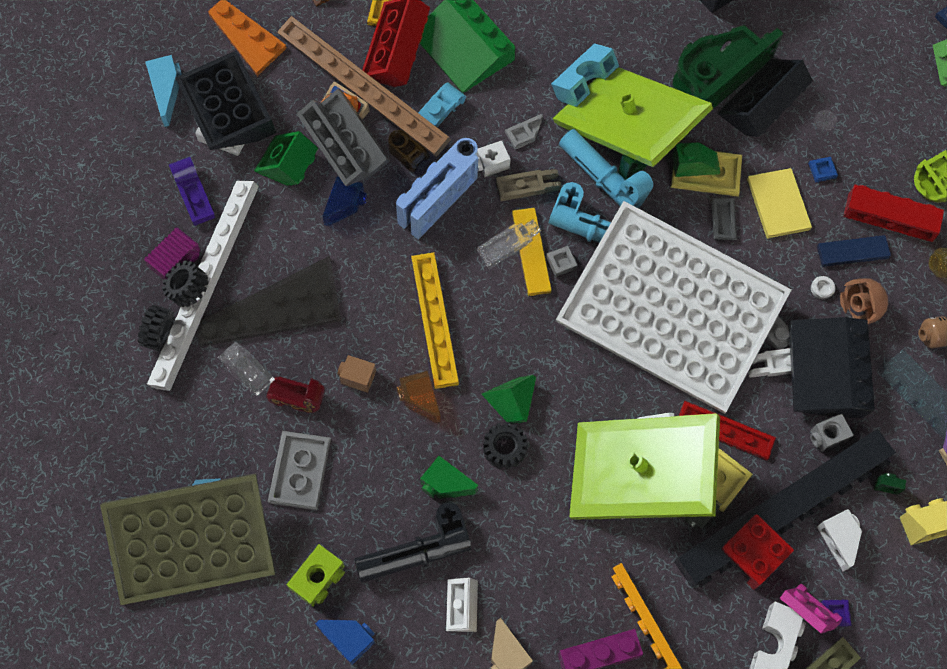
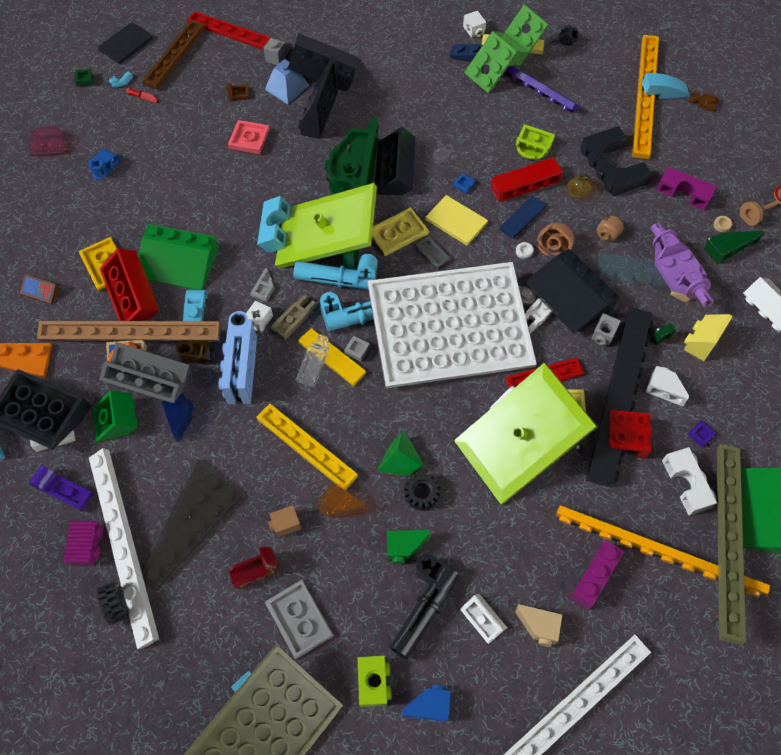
camera: 35 degrees left, 5 degrees down
(185, 284) = (101, 555): black tyre -> none
(245, 368) = (204, 579): clear slope -> none
(694, 160) = (387, 228): green slope -> none
(811, 609) = (690, 441): dark pink plate -> none

